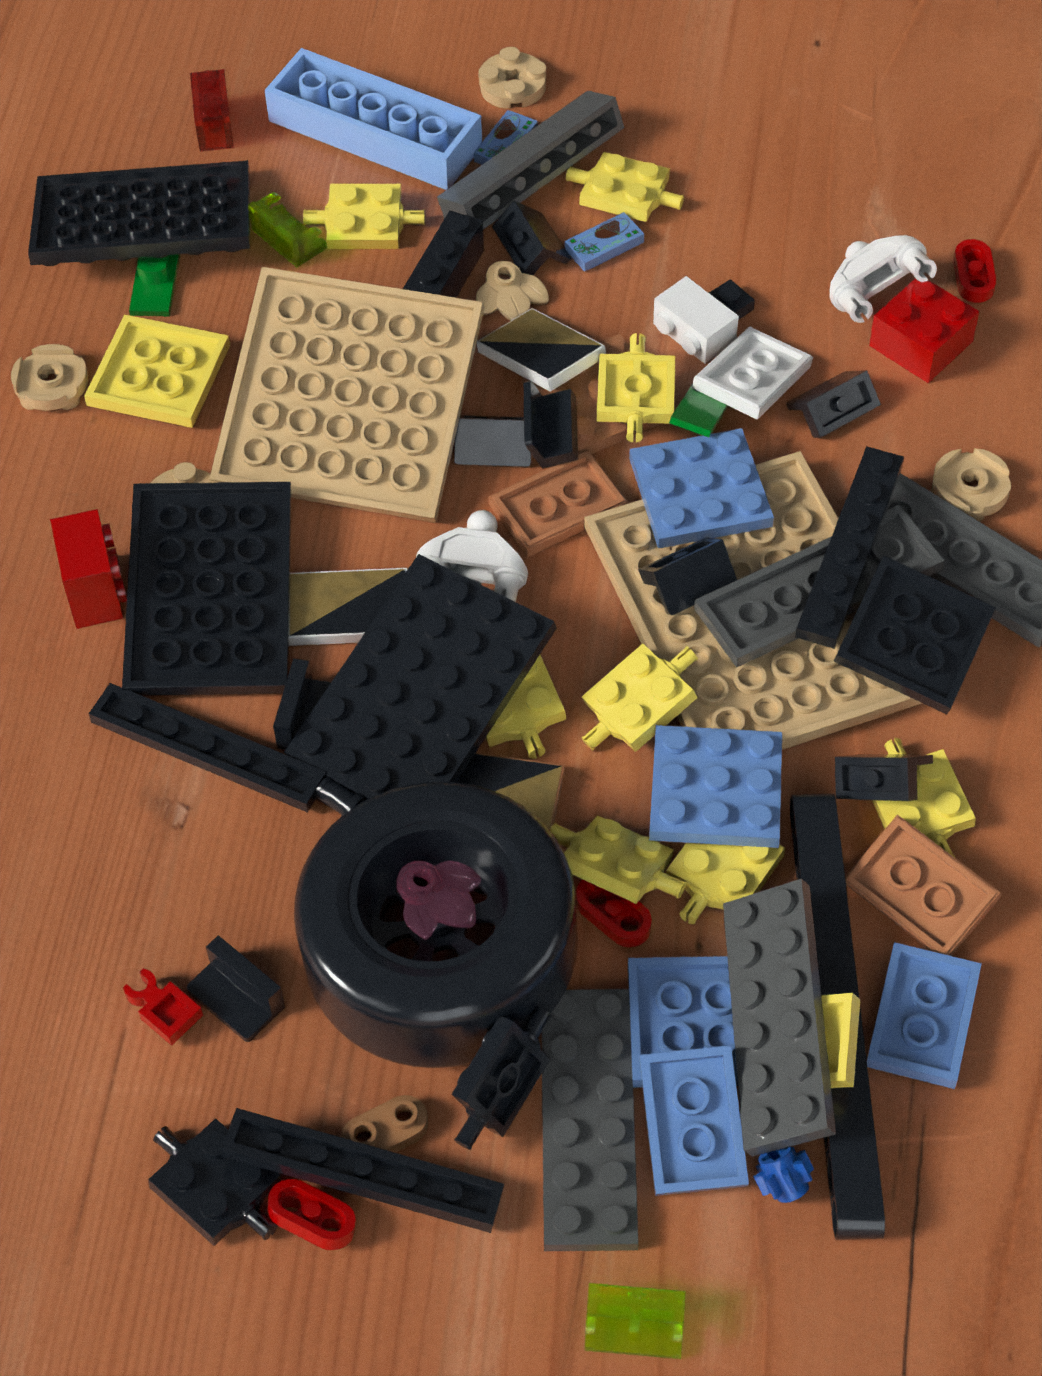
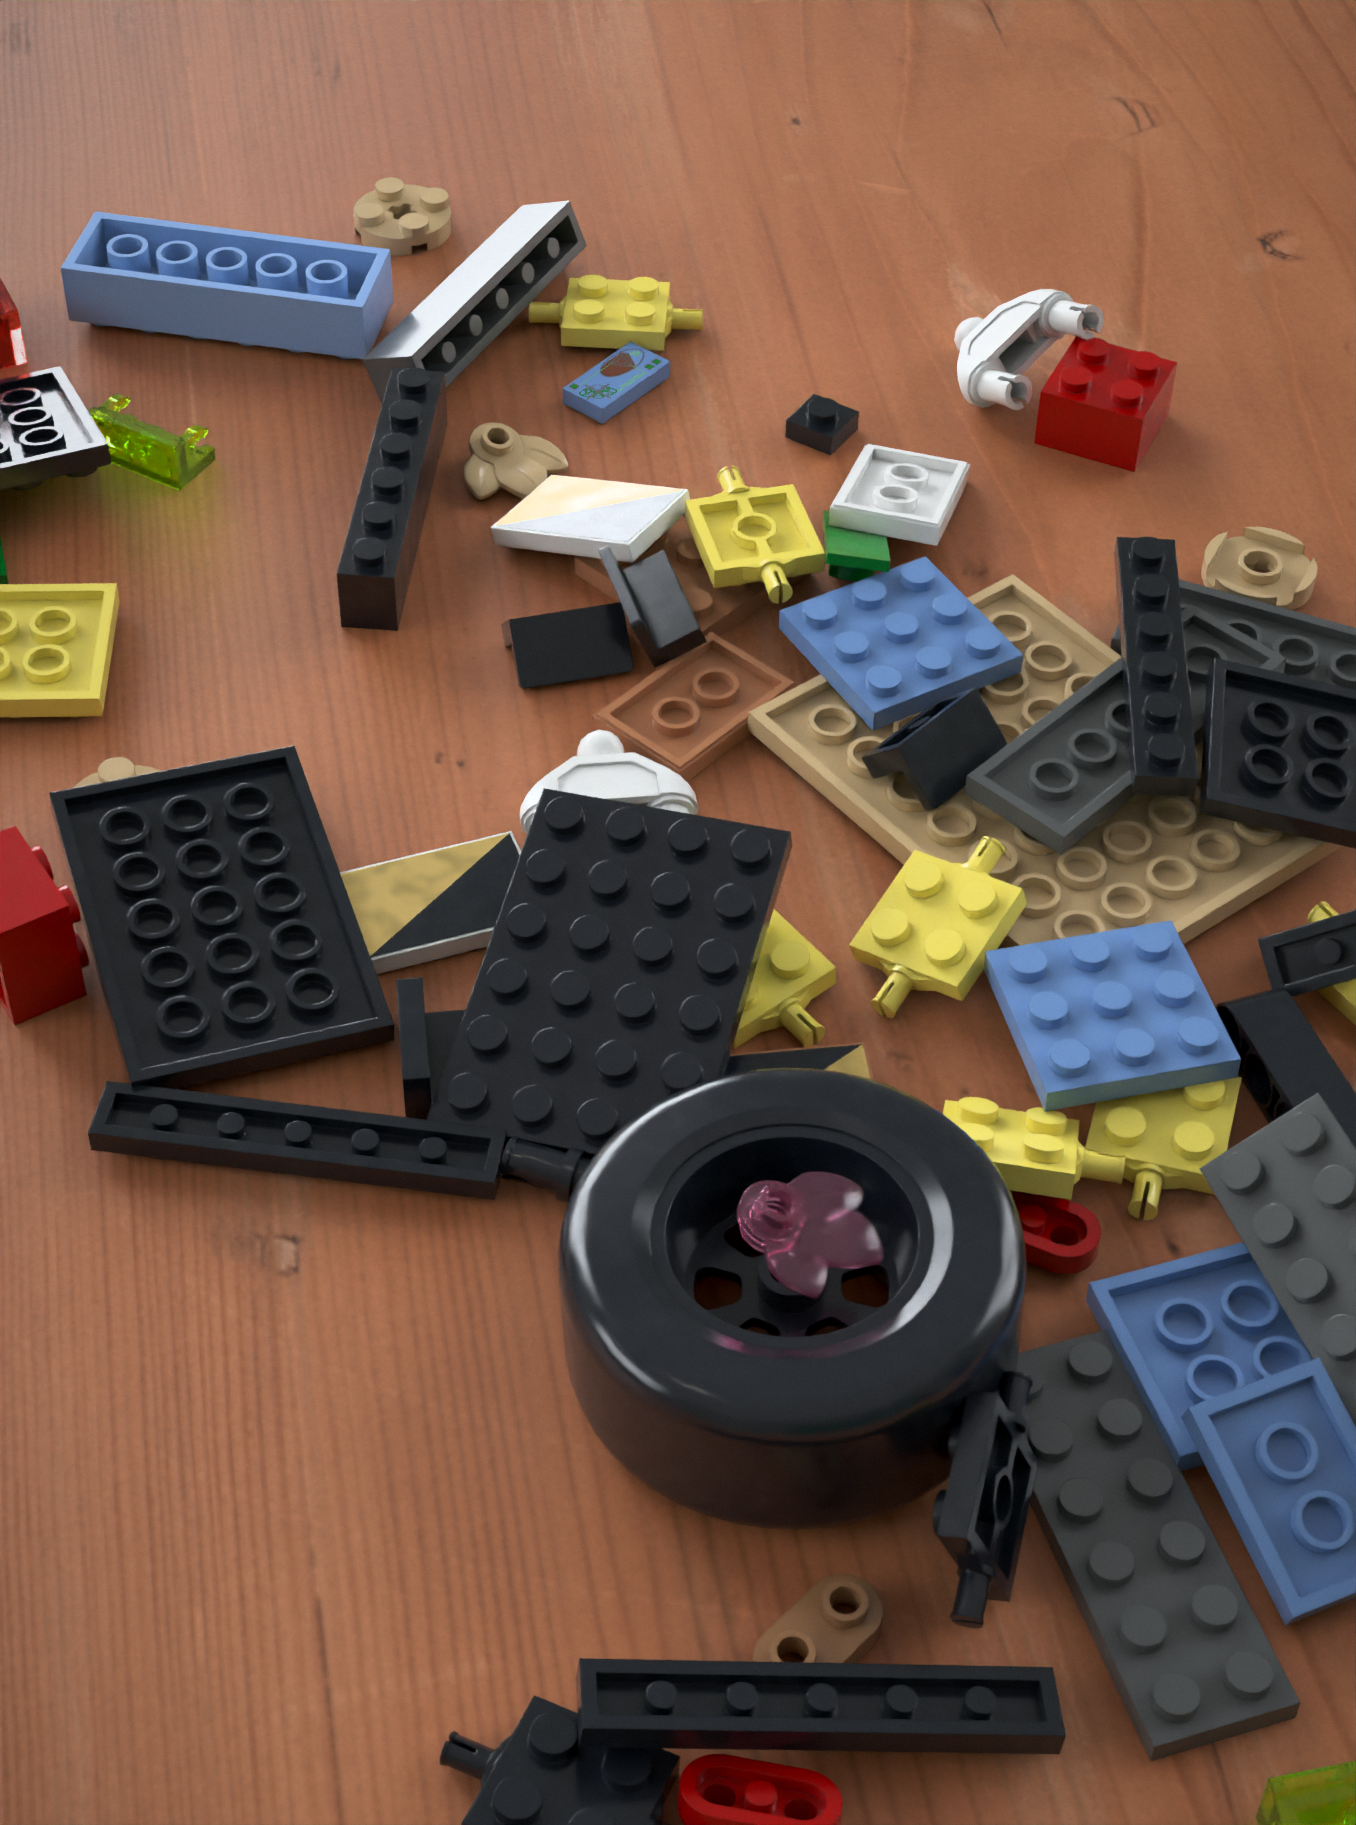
camera: 20 degrees left, 10 degrees down
(164, 1010) = (381, 1549): red plate -> none
(236, 991) = (489, 1486): black panel -> none
(349, 392) = (340, 612): tan plate -> none
(364, 216) = (258, 408): light yellow plate -> none
(506, 131) = (420, 278): medium blue tile -> none
(528, 238) = (506, 393): black panel -> none
(695, 319) = (790, 446): white brick -> none
(836, 402) = (1029, 509): black panel -> none
(974, 271) = (1134, 324): red plate -> none

